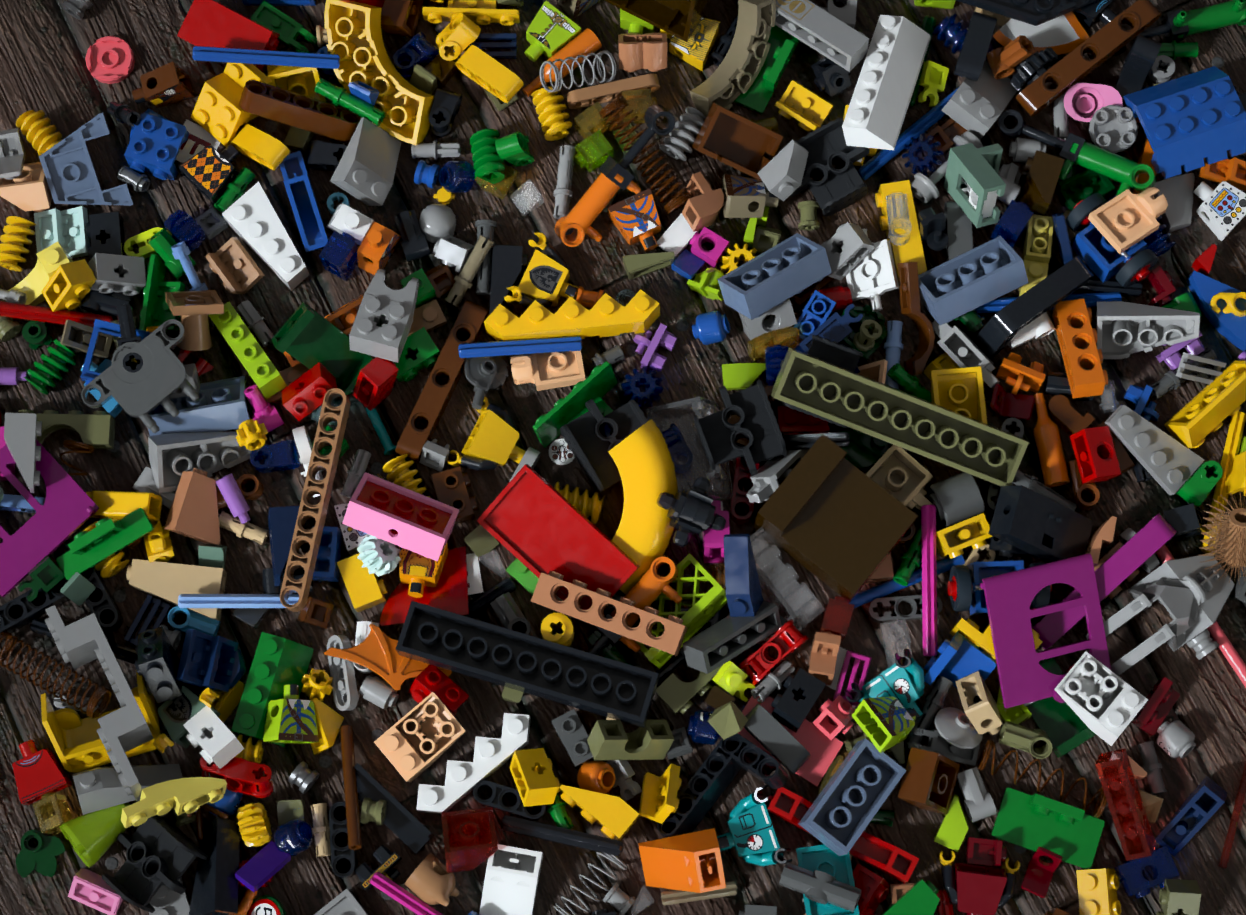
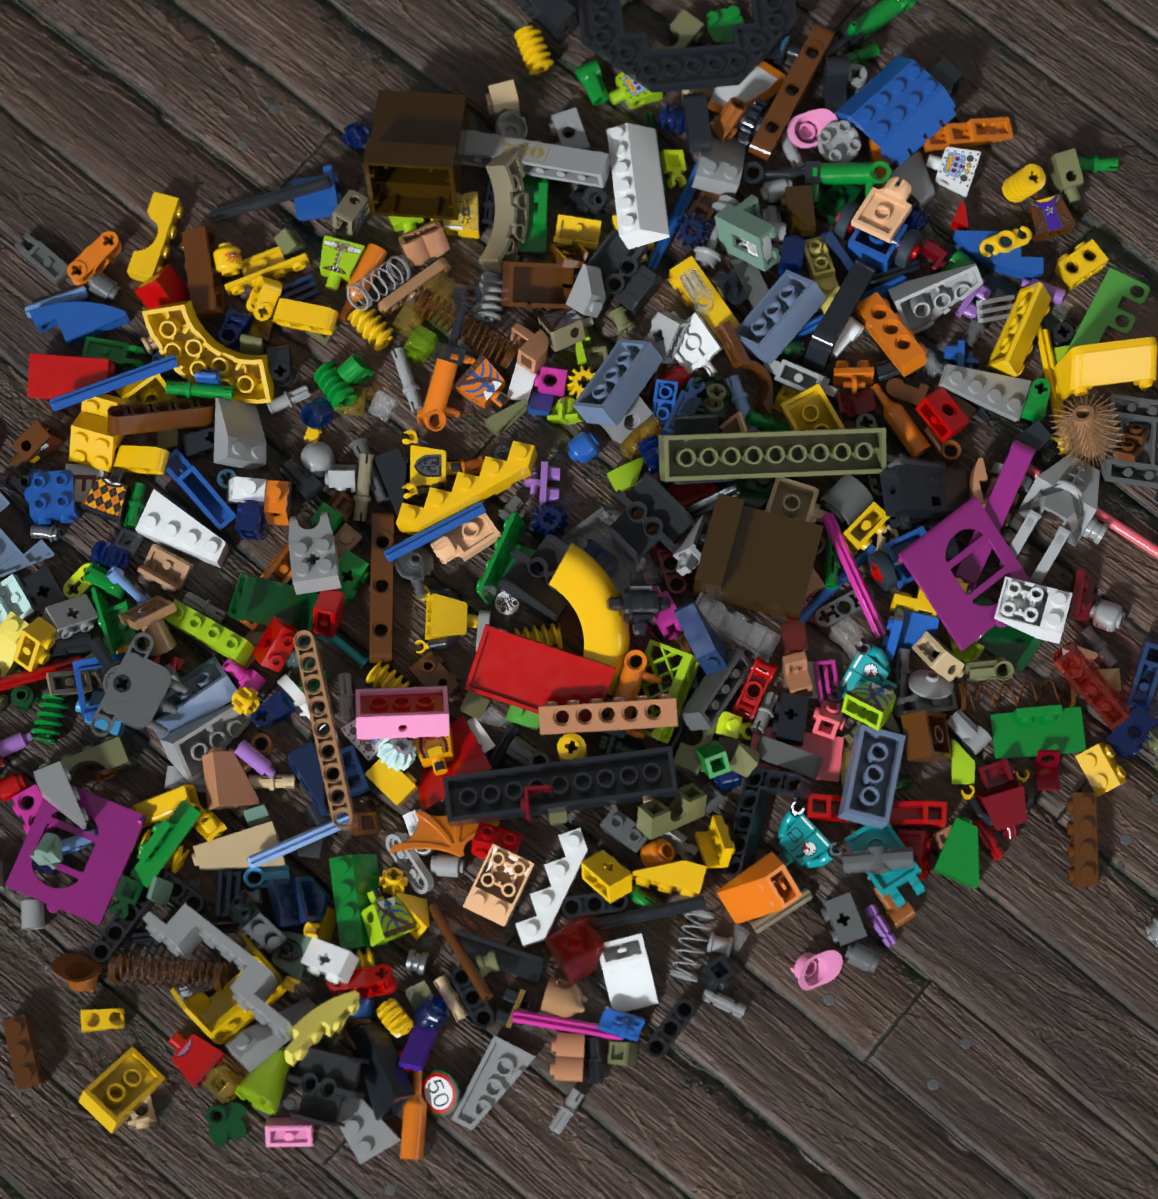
camera: 20 degrees left, 0 degrees up
(426, 174) = (290, 422): blue wheel -> none
(434, 455) = (404, 651): light grey tile -> none
(482, 663) = (525, 801): none -> dark red bracket
(696, 706) = (713, 759): none -> green brick
(784, 127) = (571, 256): none -> reddish brown slope

